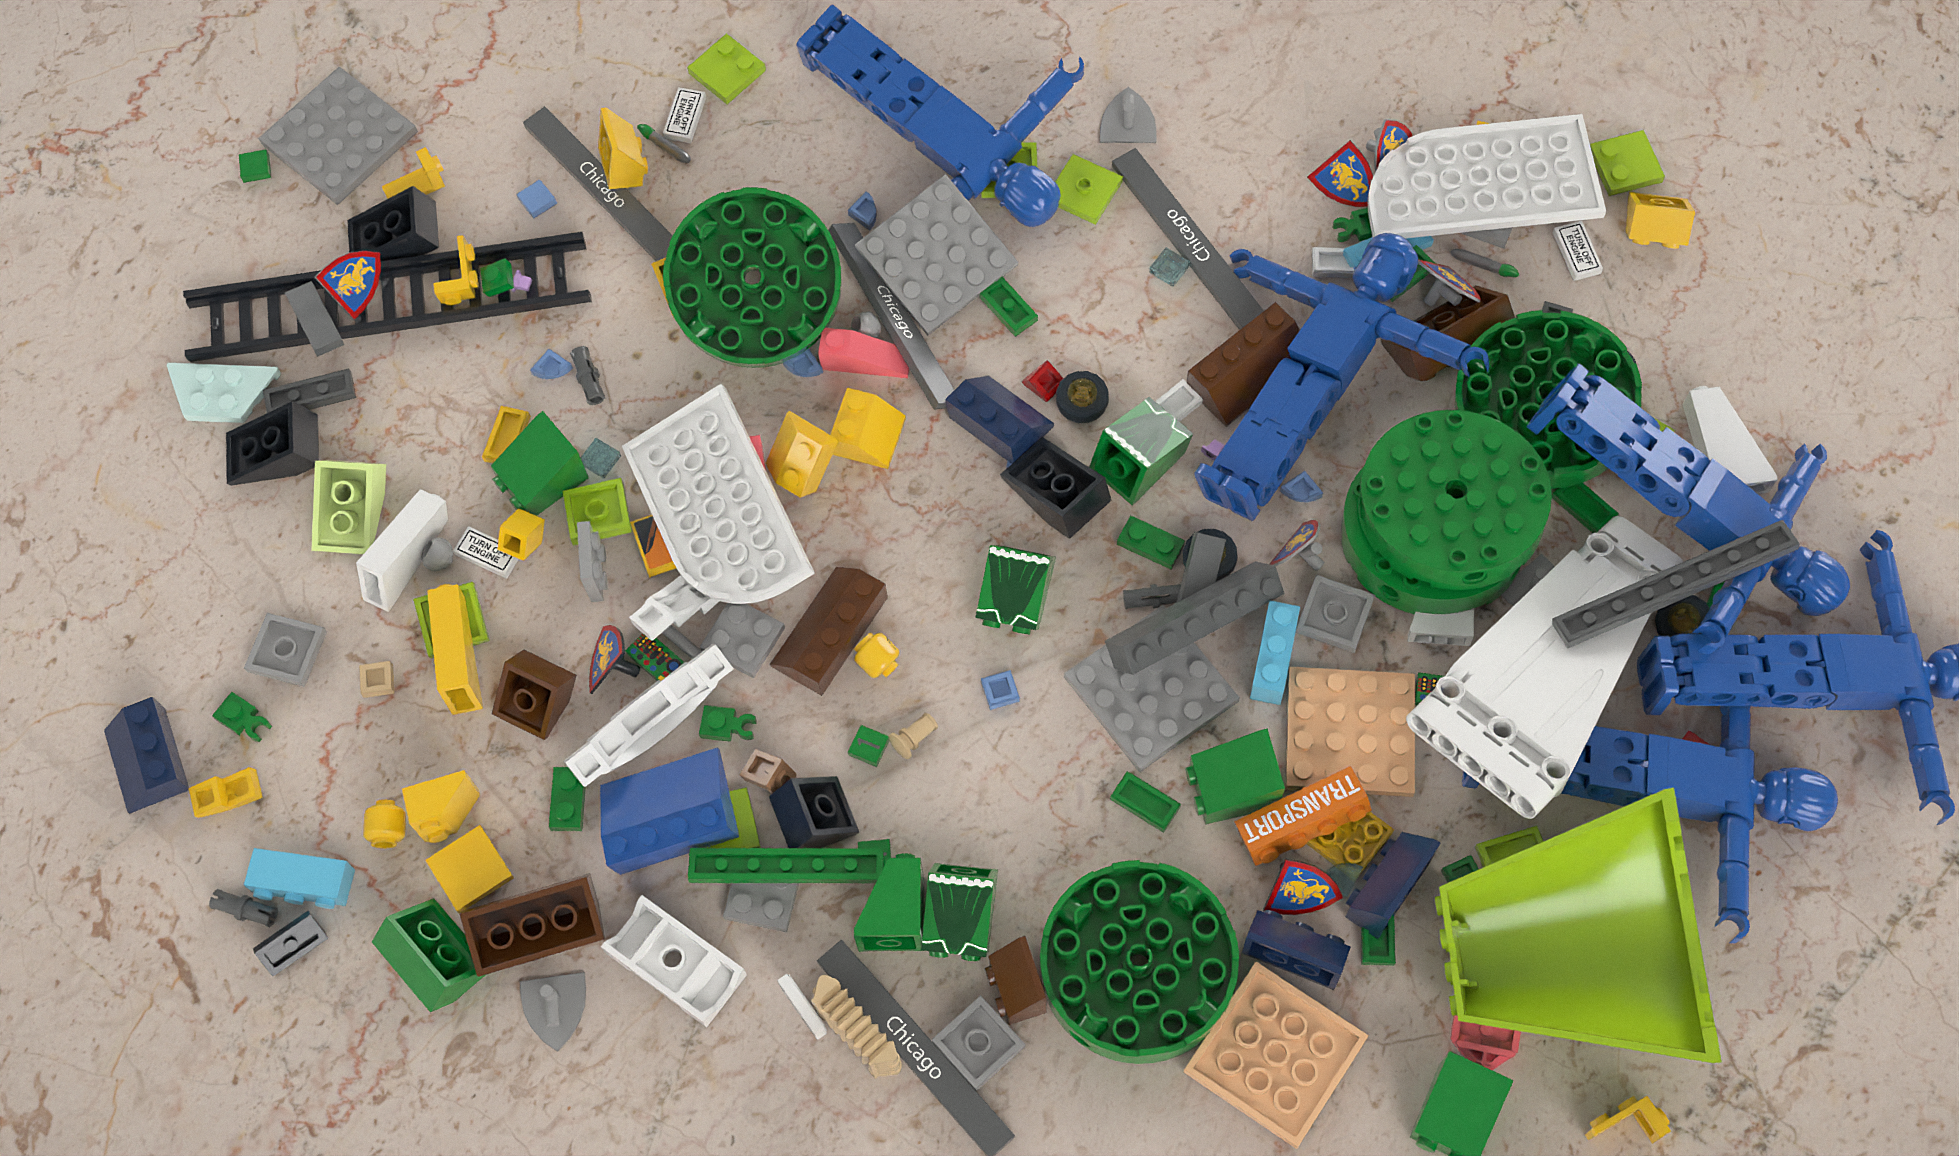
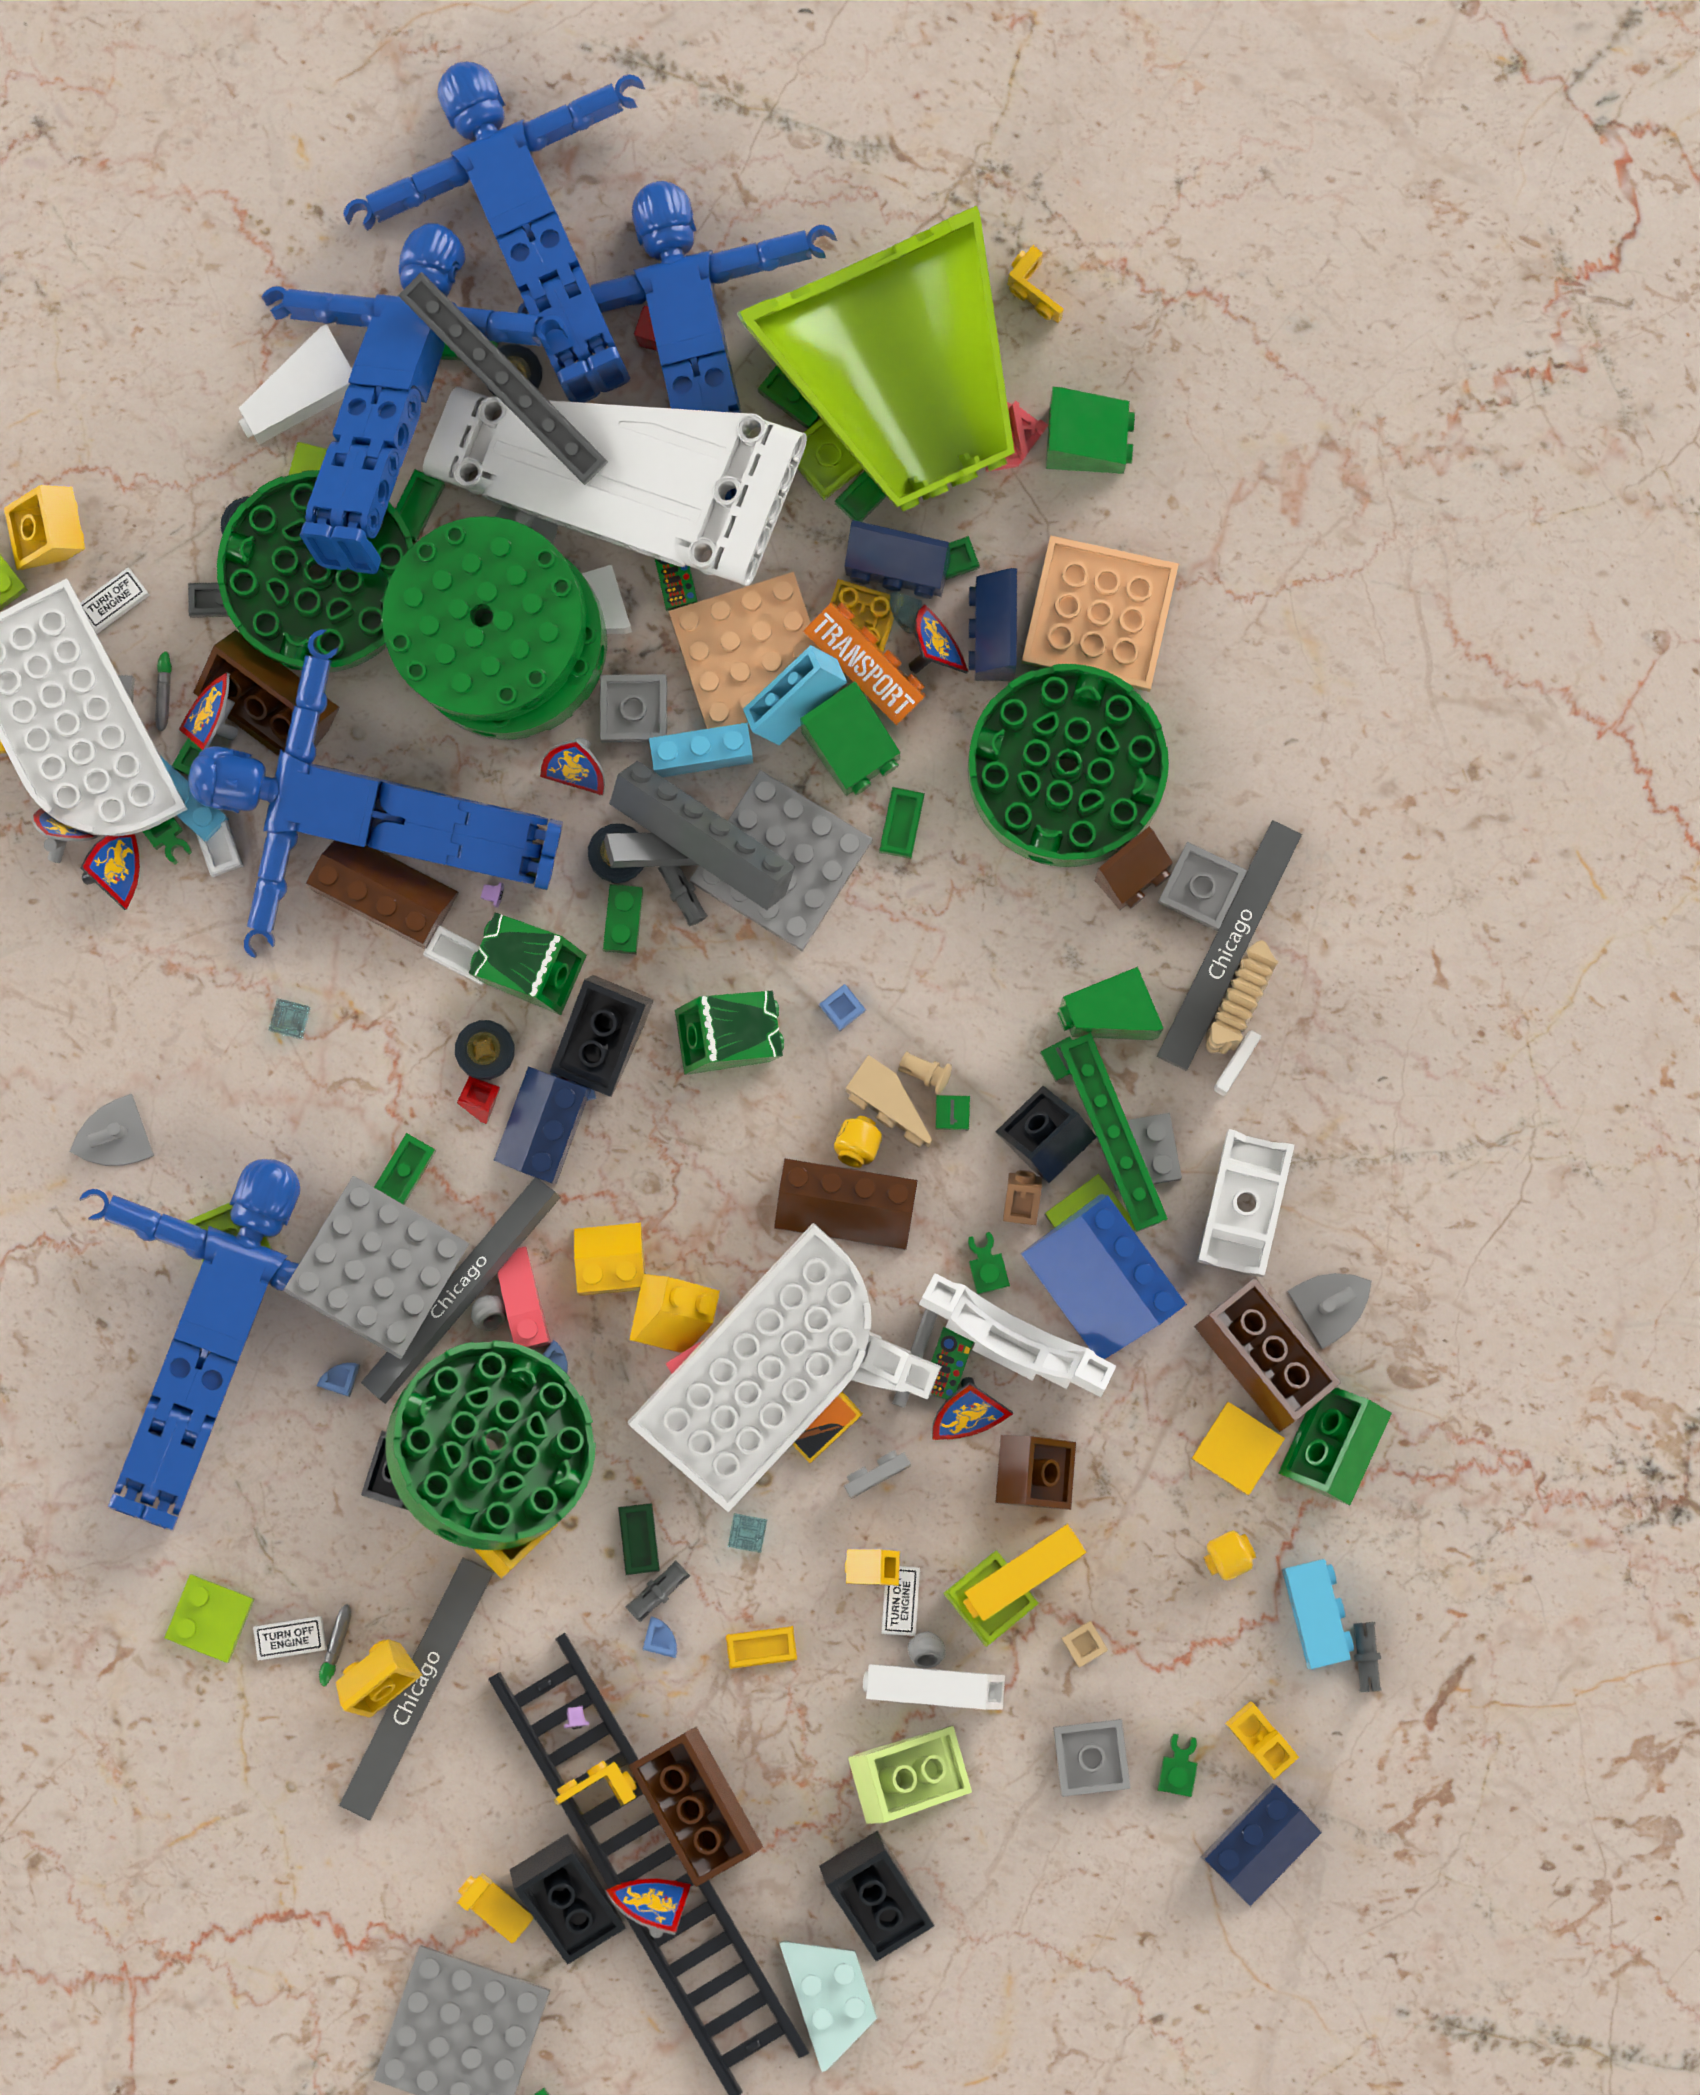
camera: 115 degrees left, 15 degrees up
(290, 943) = (1382, 1588): plate -> none
(313, 391) = (795, 1892): dark grey tile -> none
(314, 318) = (710, 1926): dark grey tile -> none
(407, 340) = (695, 1806): none -> reddish brown slope
(440, 805) = (1195, 1503): yellow slope -> none
(497, 278) = (583, 1744): green plate -> none
(536, 198) = (460, 1757): medium blue tile -> none
(538, 467) = (793, 1586): green slope -> none
(566, 801) = (1129, 1388): green plate -> none
(601, 505) = (811, 1504): lime plate -> none
(635, 377) = (639, 1539): none -> dark green tile
(744, 636) = (893, 1287): light grey plate -> none
(905, 694) = (883, 1092): none -> tan slope
(959, 911) = (1082, 951): slope -> none
(1086, 188) = (222, 1146): lime plate -> none
(1187, 238) = (246, 1013): dark grey tile -> none
(1294, 739) = (794, 693): none -> medium azure brick
(1301, 489) = (503, 789): medium blue tile -> none

